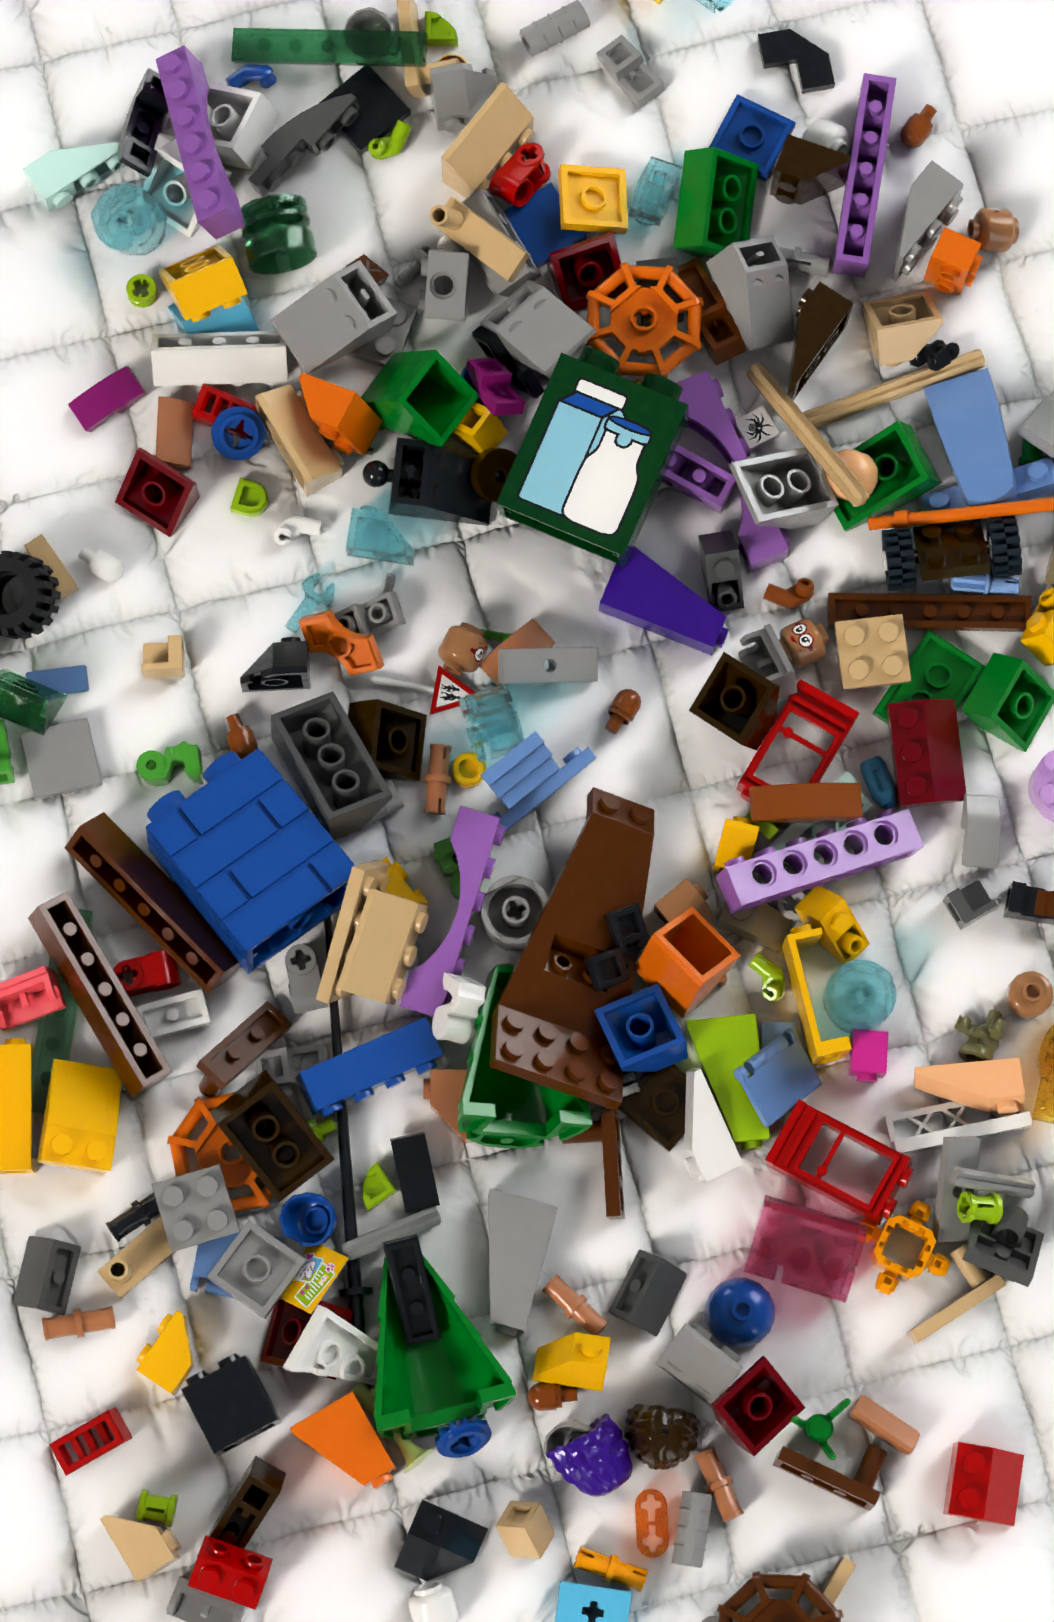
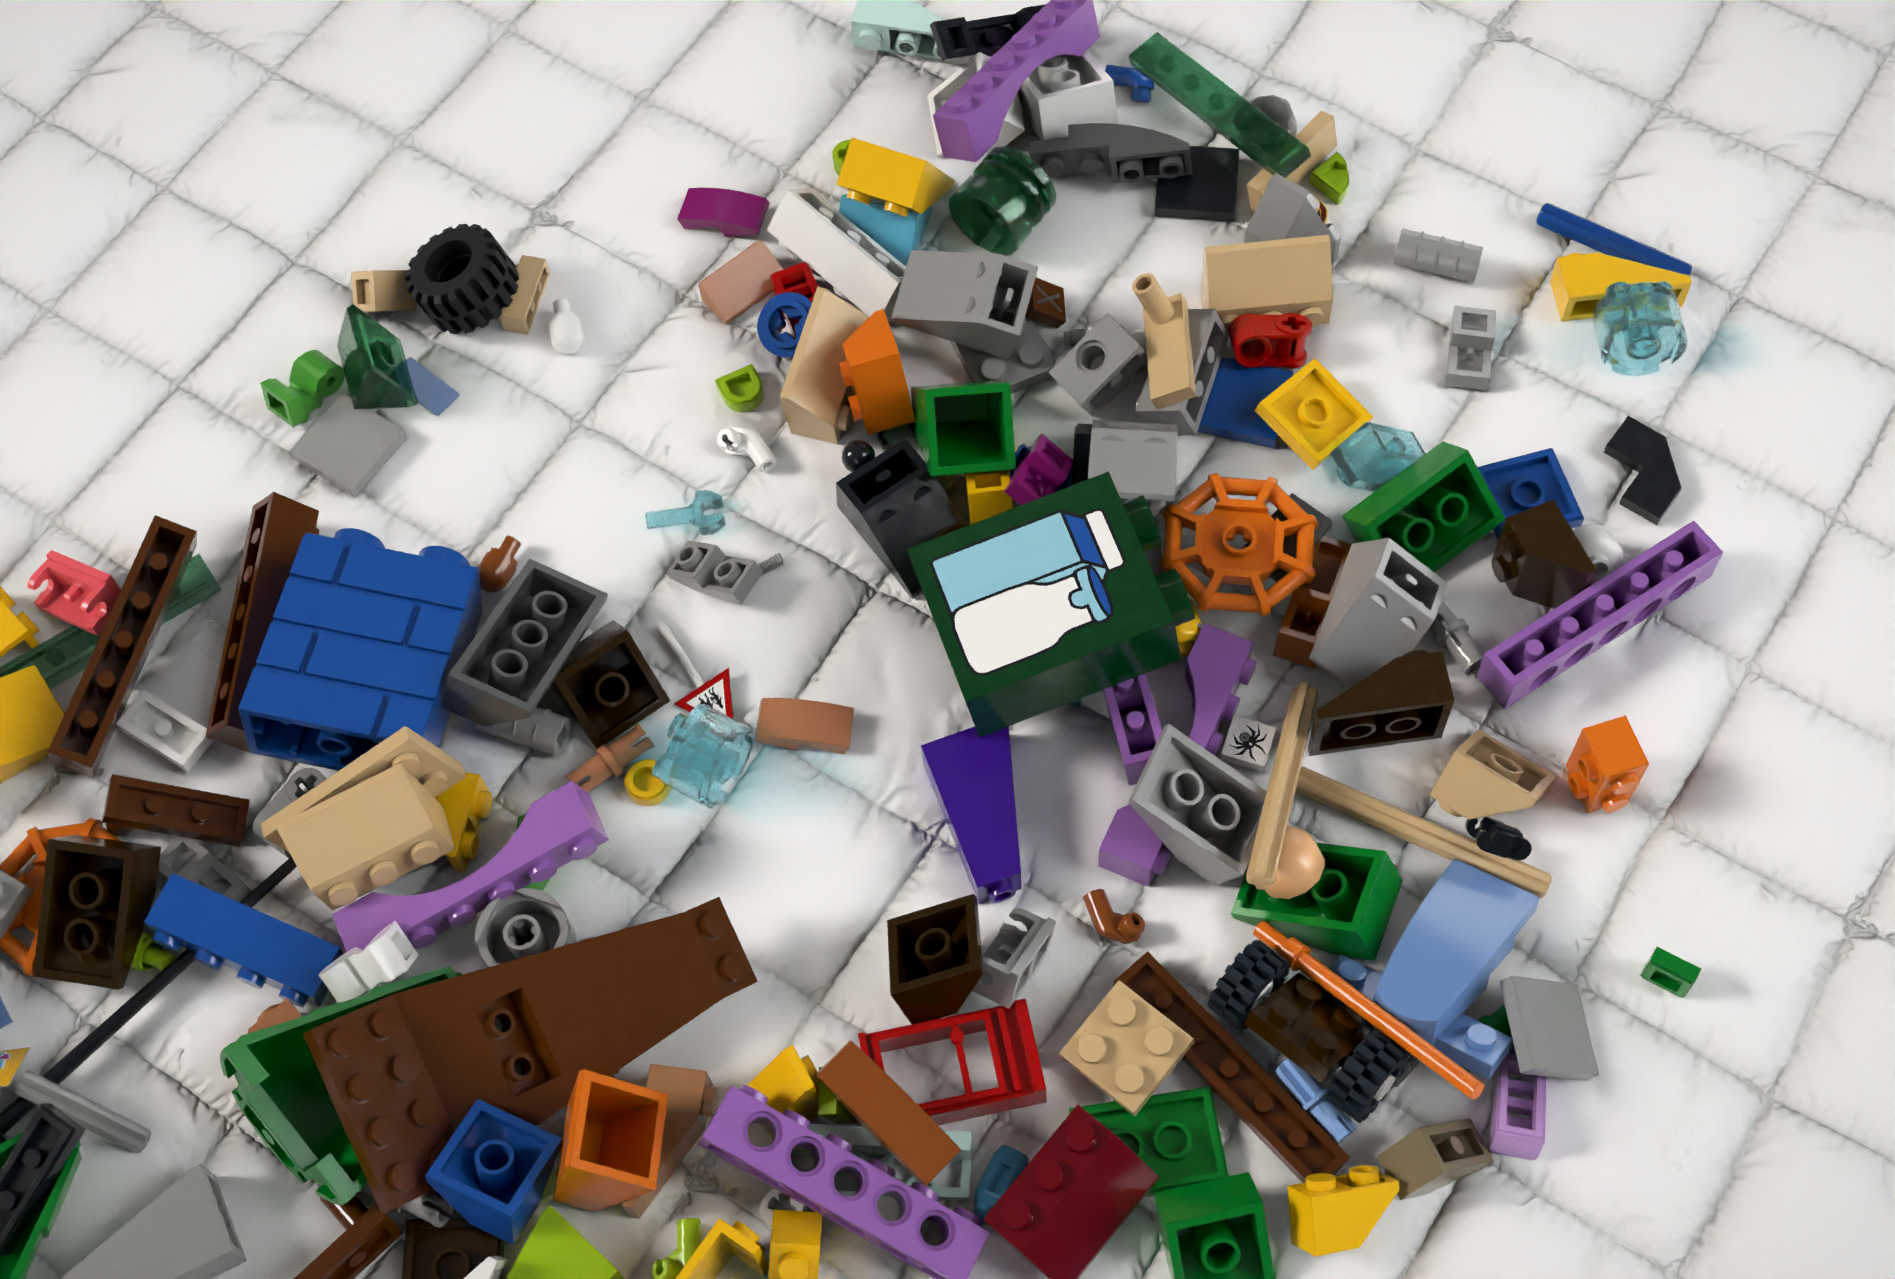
camera: 55 degrees right, 15 degrees down
(111, 220) = (898, 91): clear light blue brick -> none
(150, 972) = (183, 671): red piece -> none
(157, 493) = (671, 313): dark red slope -> none
(159, 768) = (414, 526): bright green leg -> none
(164, 658) = (520, 445): tan panel -> none
(279, 668) = (596, 538): black slope -> none
(308, 1219) = (38, 1019): blue hair -> none
(354, 650) = (669, 577): orange tile -> none
(376, 537) = (801, 511): clear light blue slope -> none
(376, 1187) = (132, 1061): lime tile -> none
(390, 145) = (1186, 227): lime arm -> none
(415, 1172) = (171, 1080): black slope -> none
(463, 648) = (760, 671): medium nougat head -> none
(494, 634) = (805, 685): bright green leg -> none
(531, 776) = (663, 819): medium blue slope -> none
(565, 665) = (792, 734): light grey tile -> none
(584, 268) = (1240, 452): dark red slope -> none
(623, 709) = (839, 866): dark orange cylinder -> none
(628, 938) = (549, 1080): black tile -> none
(721, 570) = (1068, 832): dark grey slope -> none
(758, 924) = (726, 1188): dark tan slope -> none
(804, 642) = (1069, 972): medium nougat head -> none
(918, 127) = (1704, 626): dark orange cylinder -> none
(930, 204) = (1641, 684): light grey slope -> none
(994, 229) = (1684, 780): medium nougat head -> none

